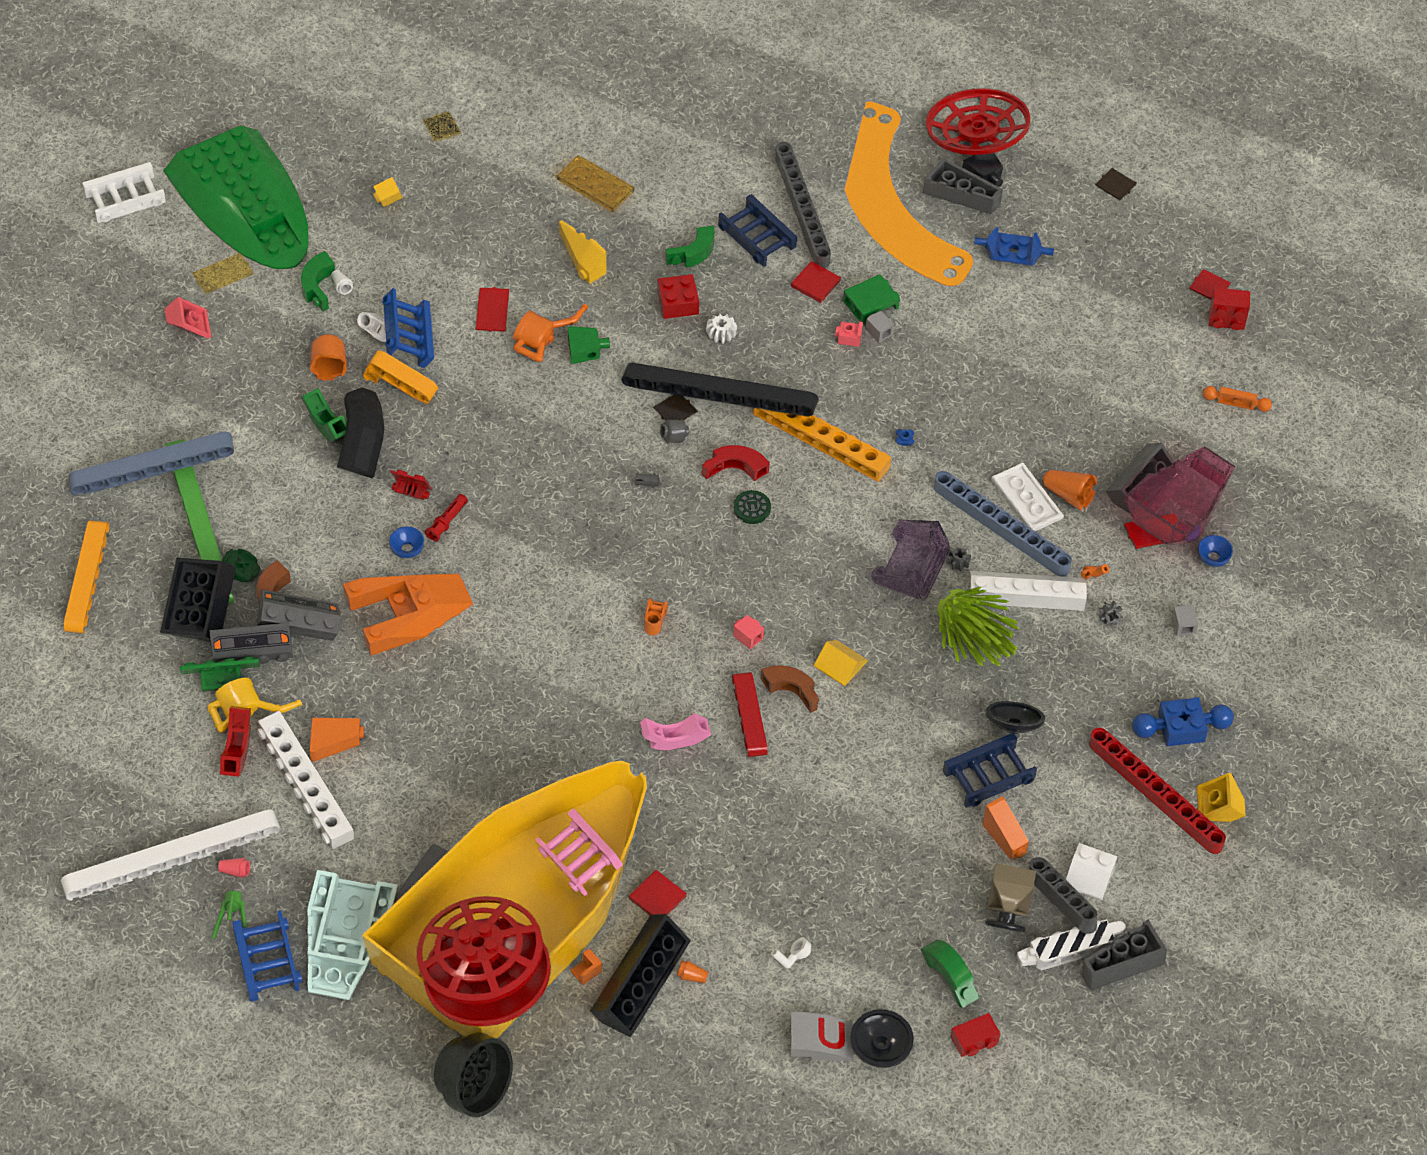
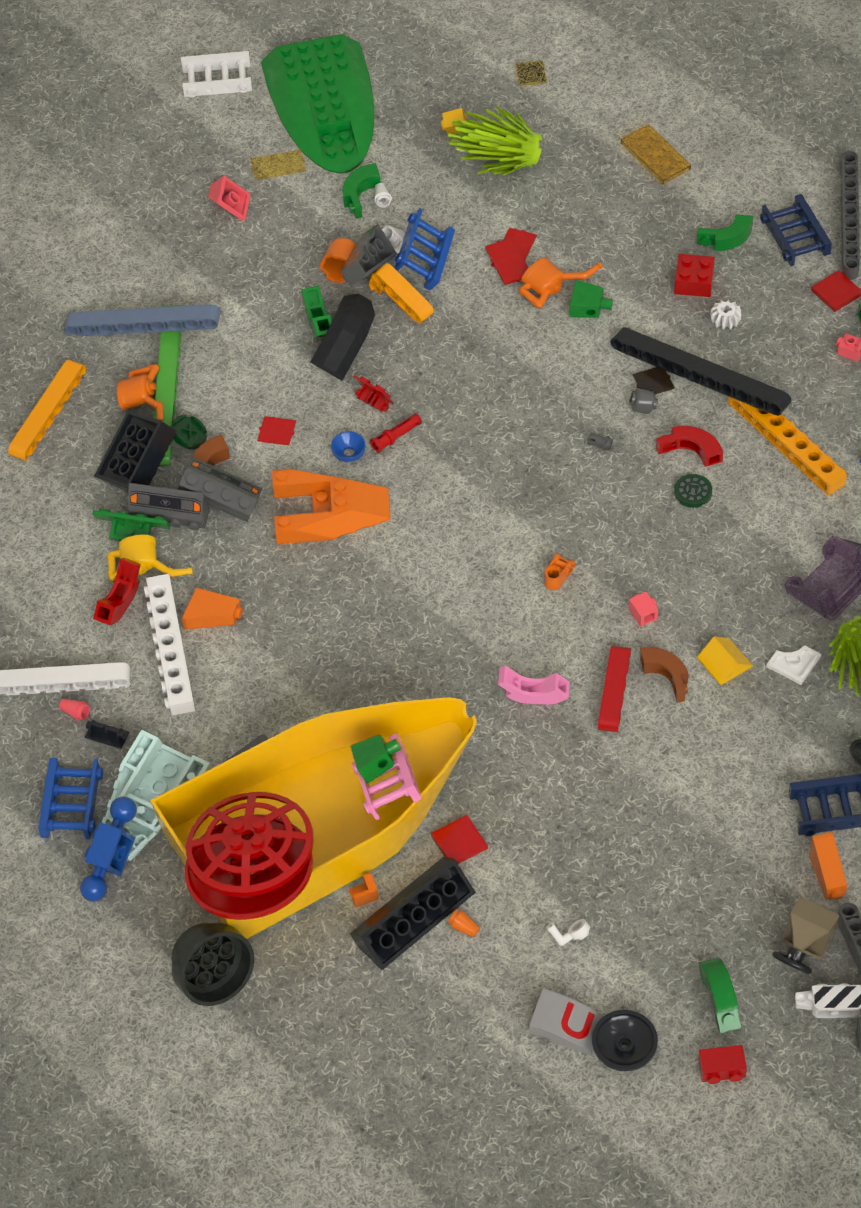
camera: 25 degrees right, 0 degrees up
(175, 534) = (139, 390): none -> orange piece
(231, 904) = (58, 741): bright green plant -> none
(276, 884) = (106, 734): none -> black hinge
(327, 543) = (276, 430): none -> red piece
(329, 993) = (109, 849): none -> blue brick
(357, 347) = (368, 255): none -> dark grey wedge
(443, 204) = (503, 142): none -> lime plant
(491, 321) = (507, 260): none -> red piece
(562, 836) = (374, 756): none -> green torso
(586, 254) = (619, 217): yellow wedge -> none
(906, 649) = (794, 664): none -> white tile

